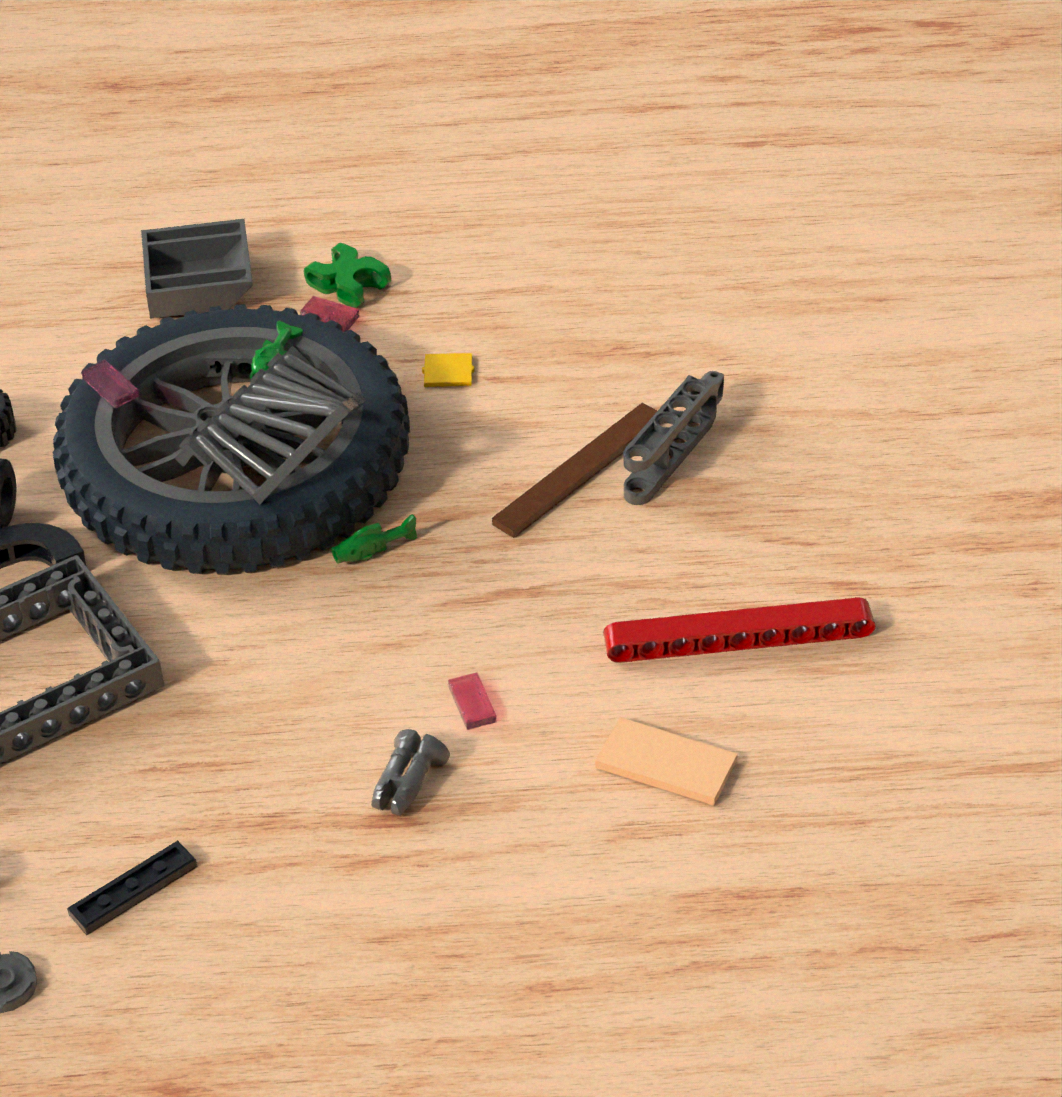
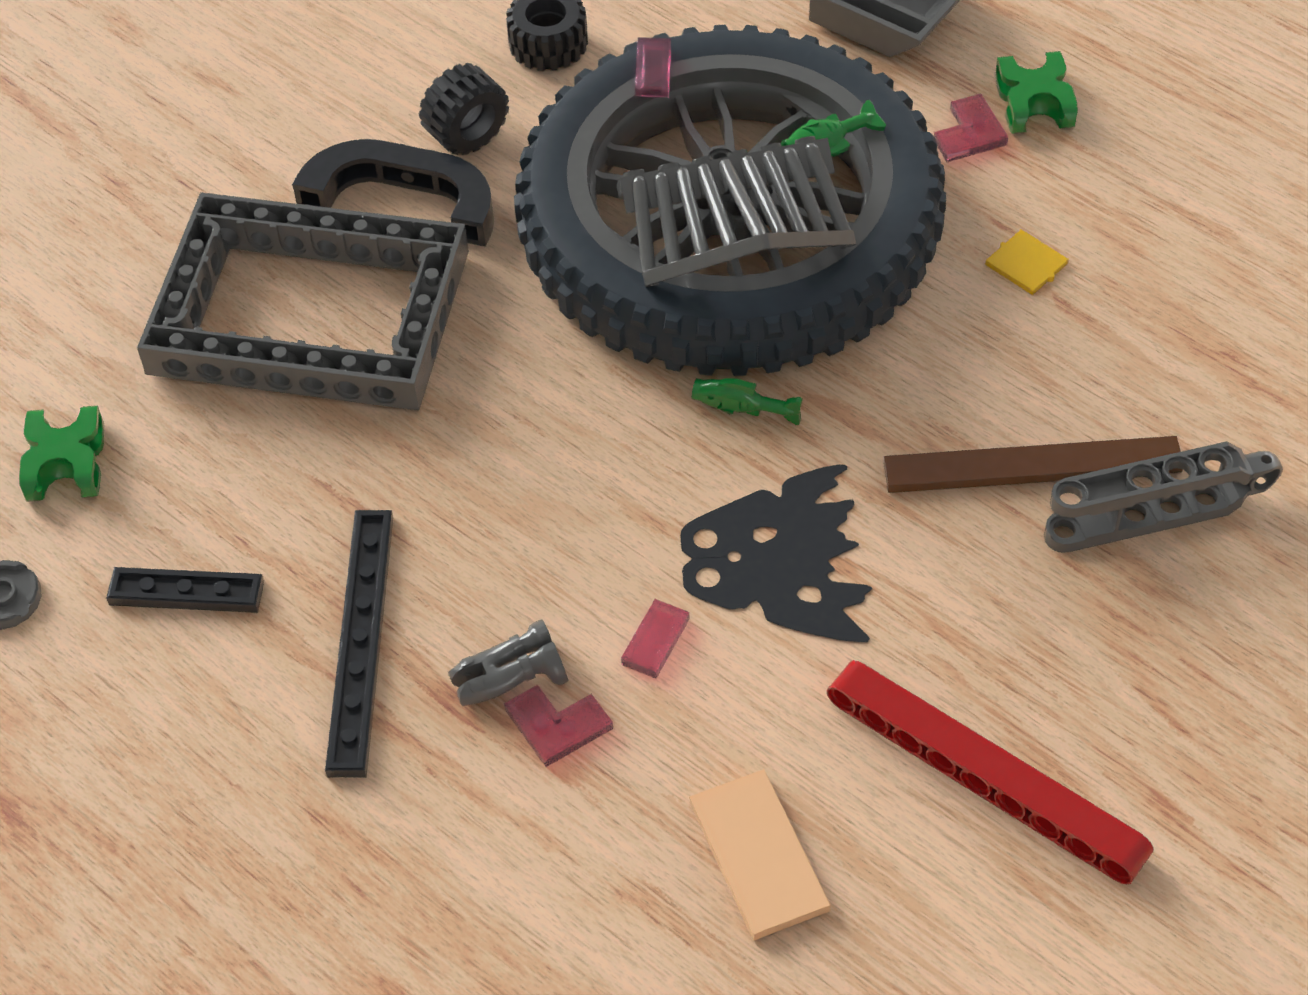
camera: 45 degrees right, 10 degrees up
(290, 832) = (359, 645): none -> black tile
(470, 791) = (554, 732): none -> clear pink tile
(496, 612) = (783, 565): none -> black piece

